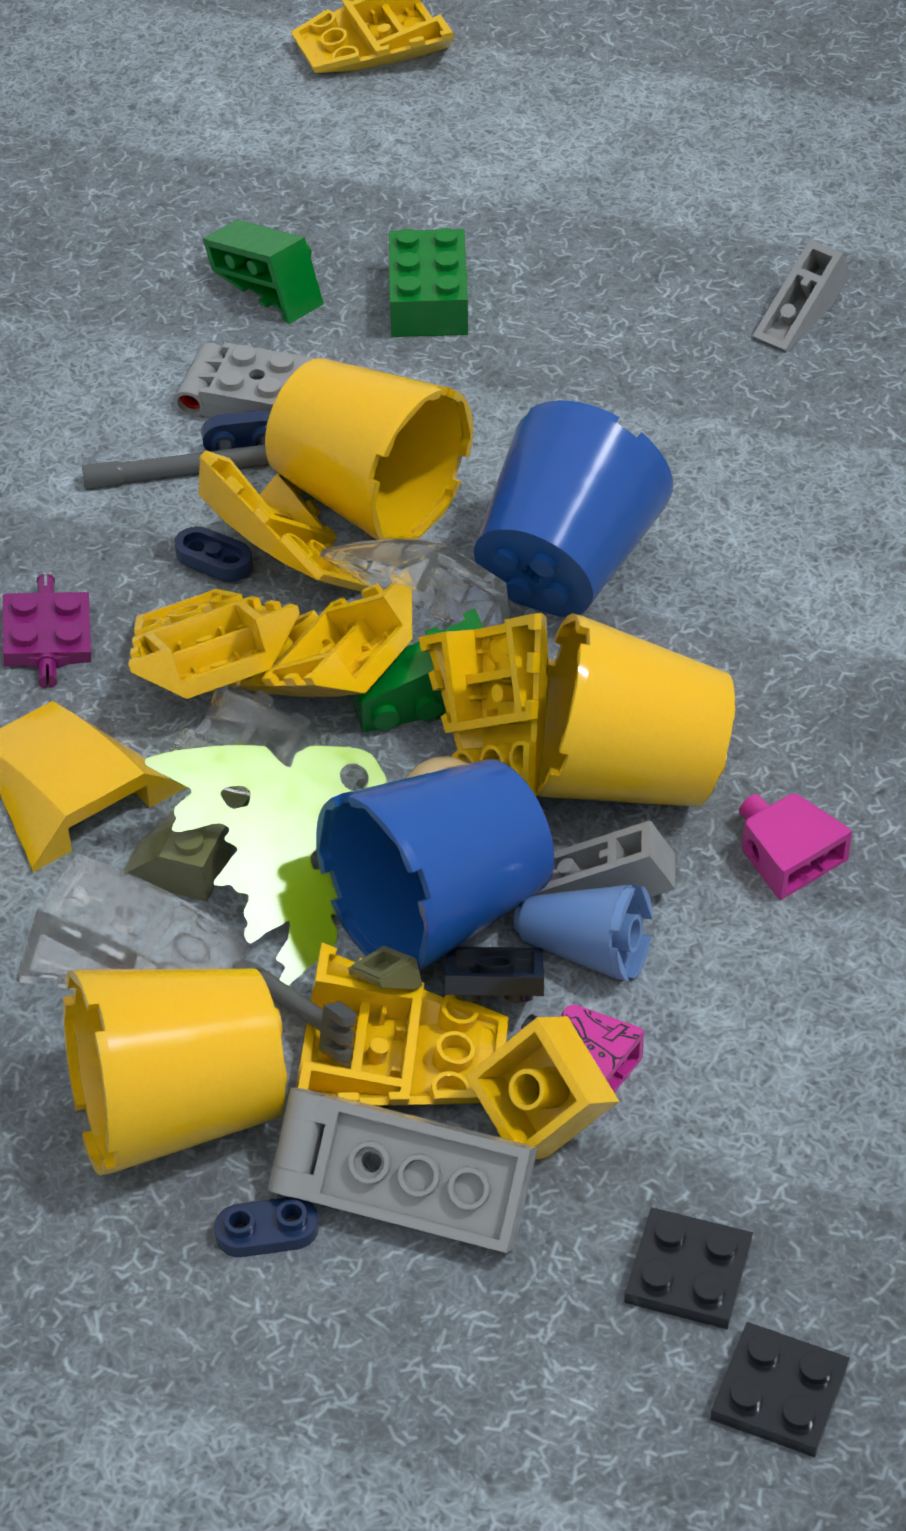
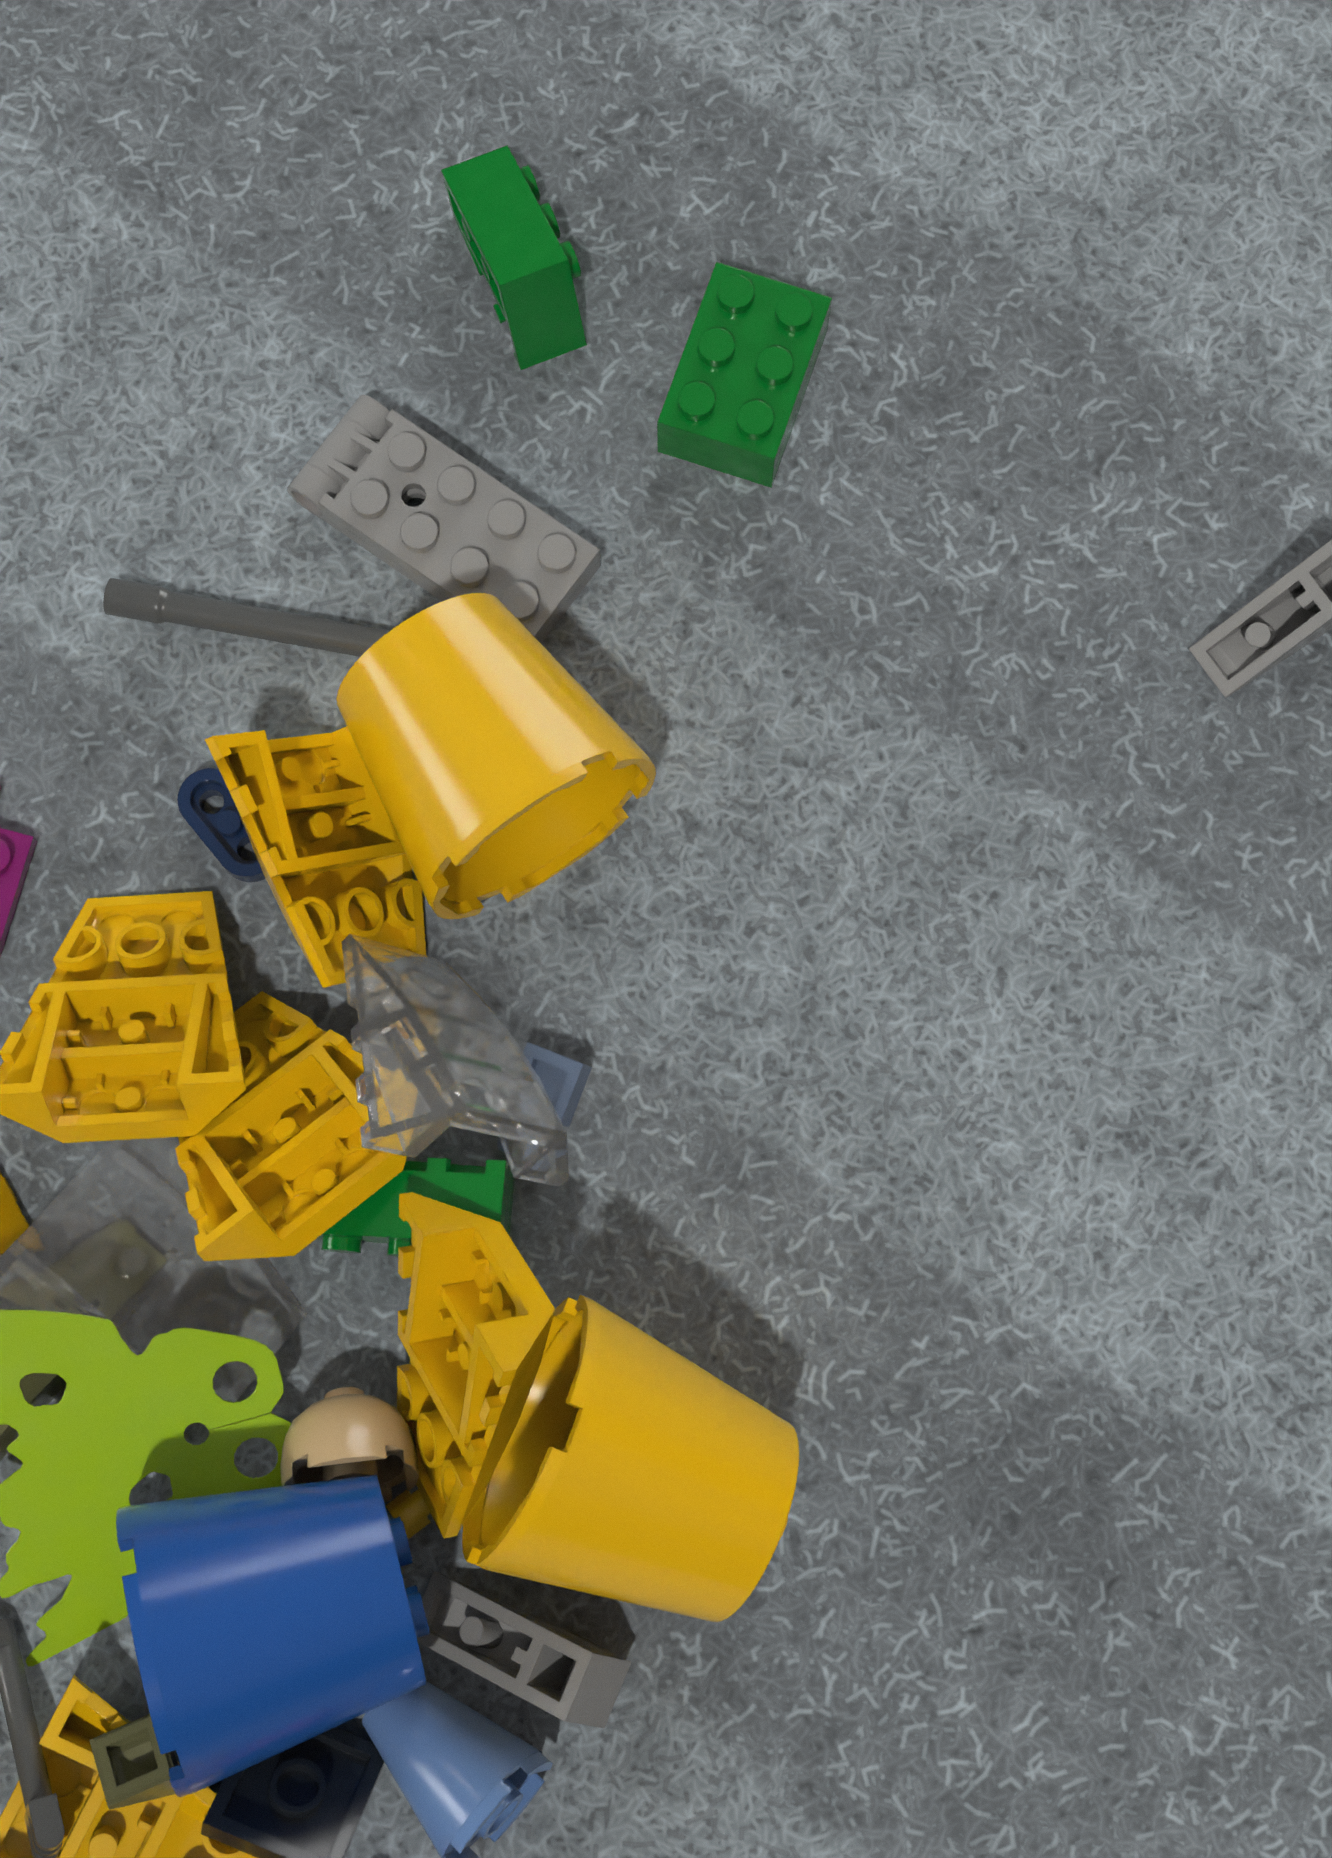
camera: 20 degrees right, 30 degrees up
(235, 430) = (337, 592): dark blue plate -> none
(570, 505) = (718, 1004): blue cone -> none
(792, 841) = (799, 1701): dark pink torso -> none

